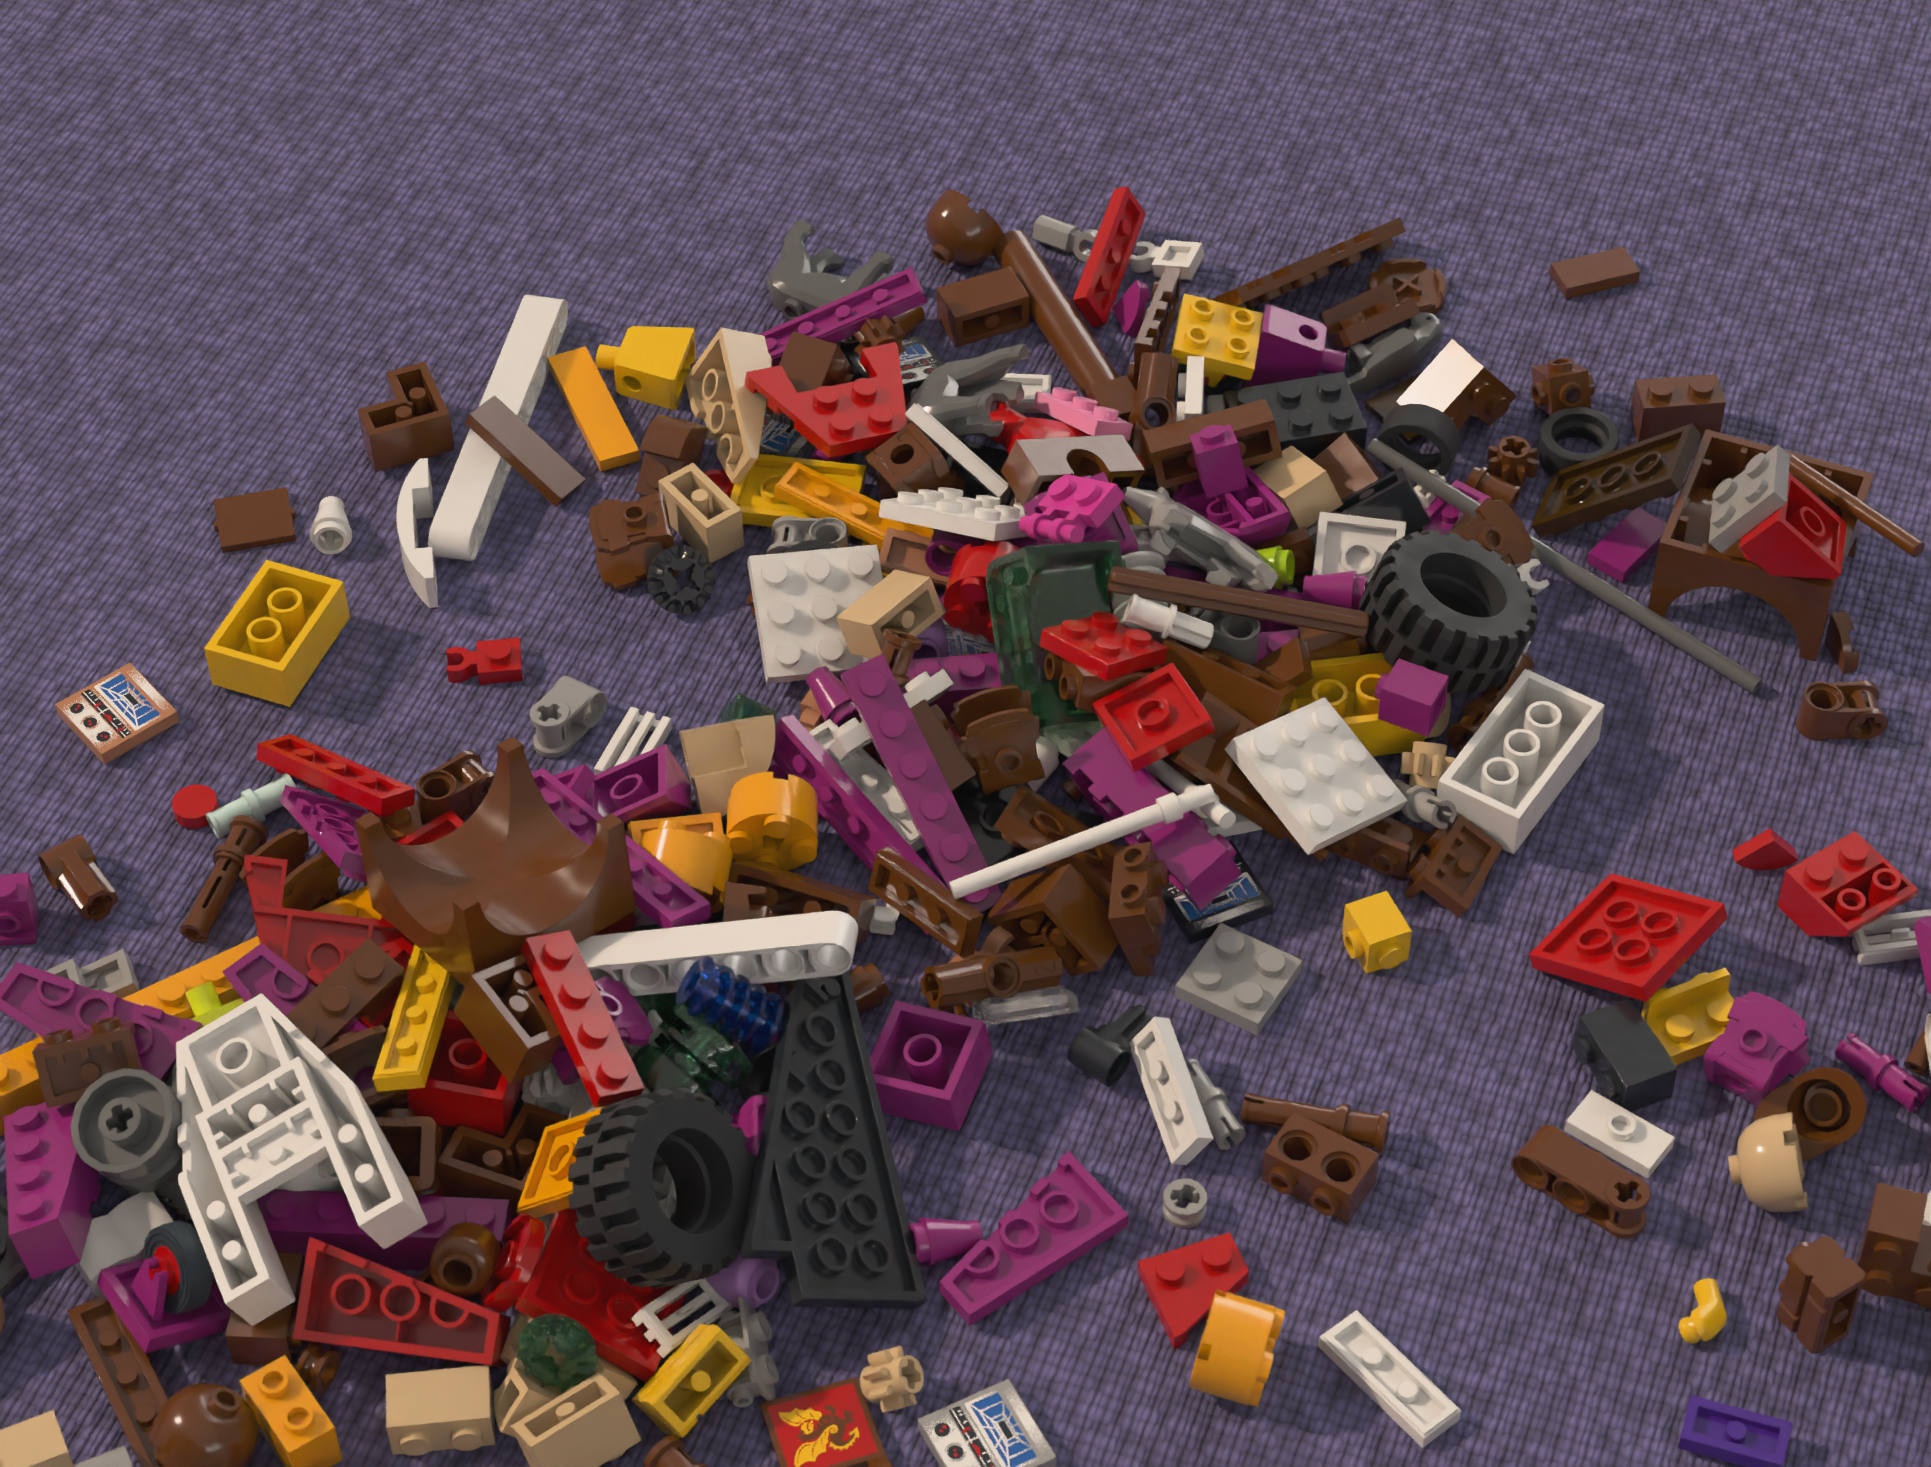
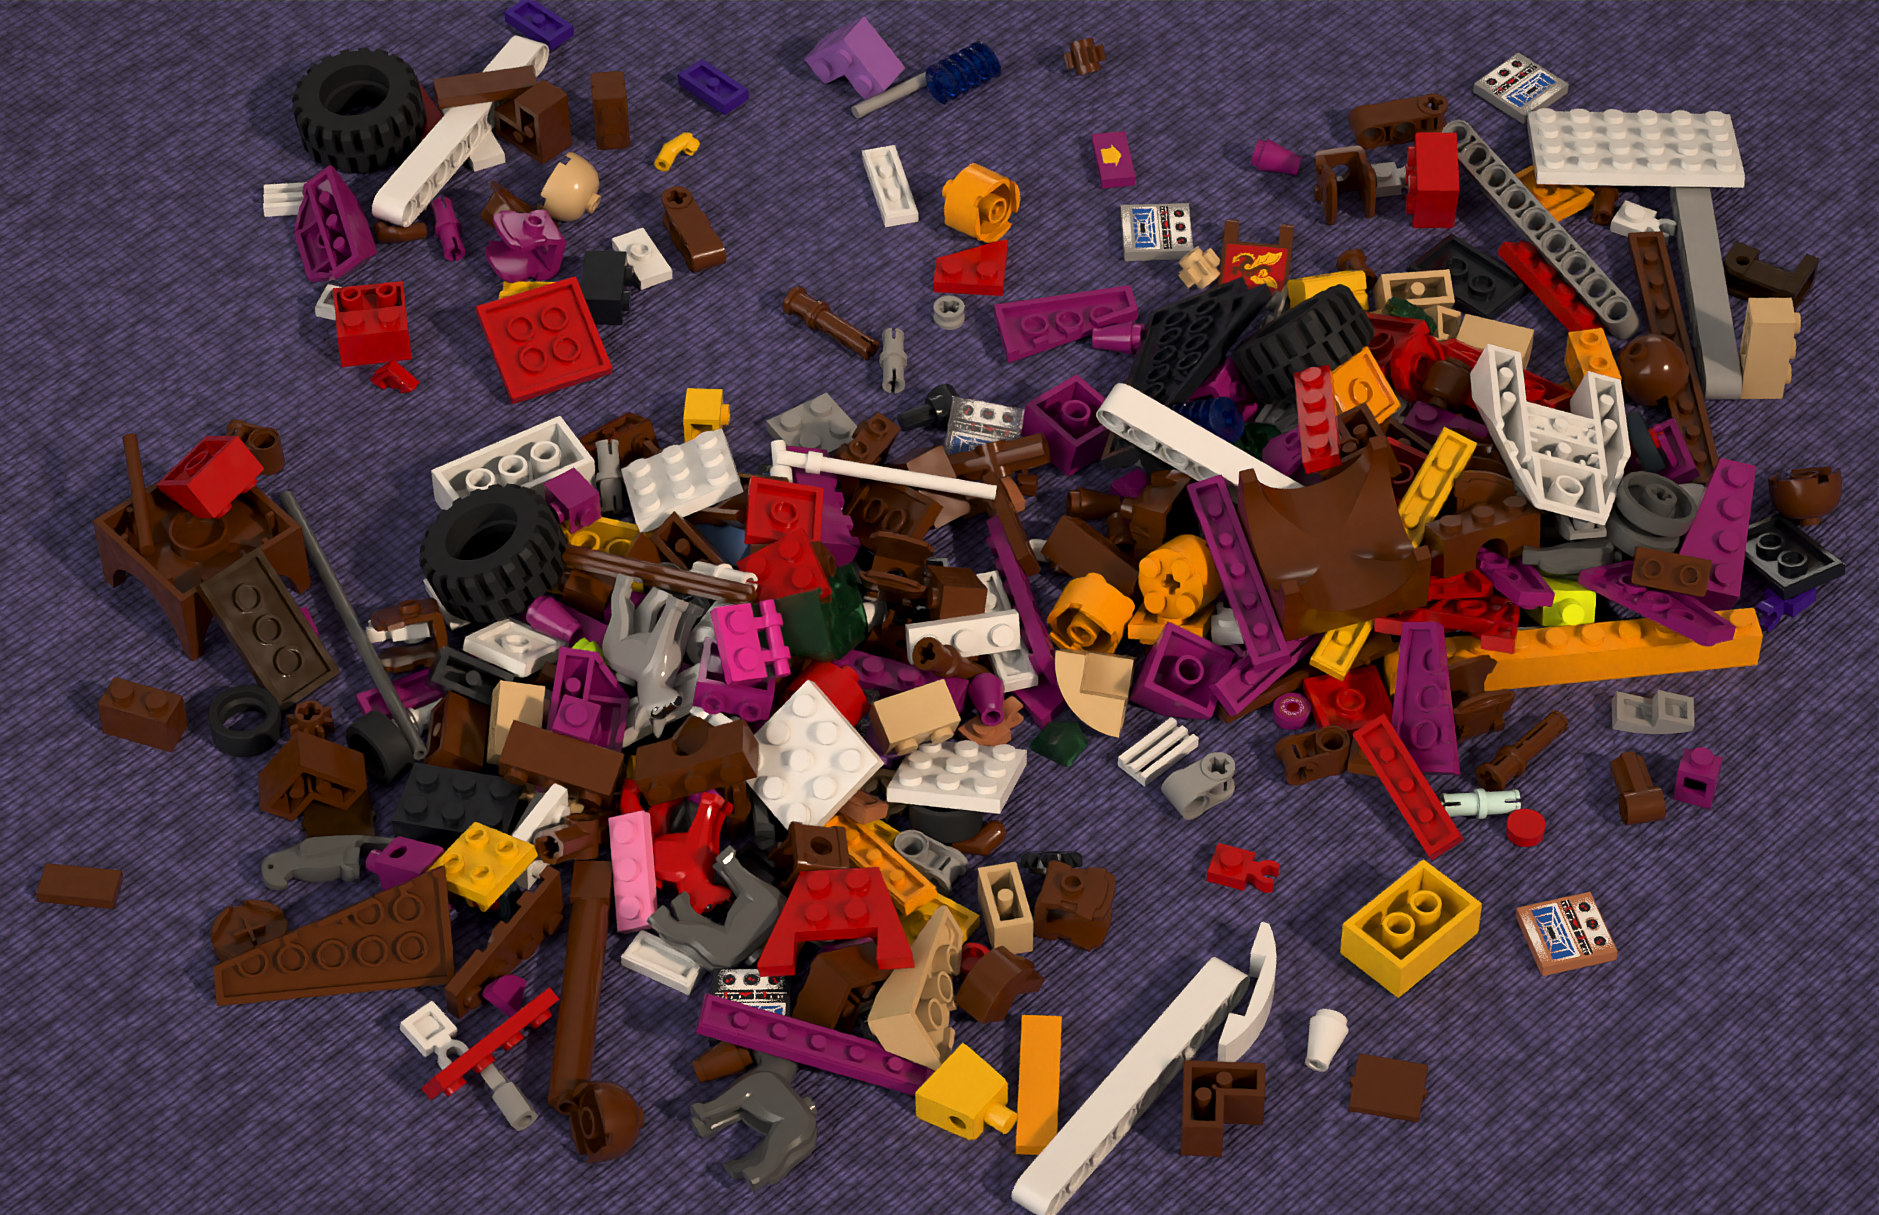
camera: 155 degrees left, 0 degrees up
(525, 451) = (1128, 1024): tile -> none
(879, 332) = (764, 994): reddish brown gear -> none
(917, 776) = (974, 564): magenta plate -> none
(958, 452) = (768, 851): white tile -> none
(982, 306) = (635, 1043): reddish brown brick -> none
(1170, 1091) = (917, 362): white plate -> none
(1322, 1162) = (851, 291): reddish brown brick -> none
(1365, 316) = (316, 886): reddish brown bracket -> none
(1493, 486) = (341, 710): reddish brown pin -> none
(1561, 386) = (219, 760): reddish brown brick -> none
(1749, 497) = (224, 493): light grey plate -> none

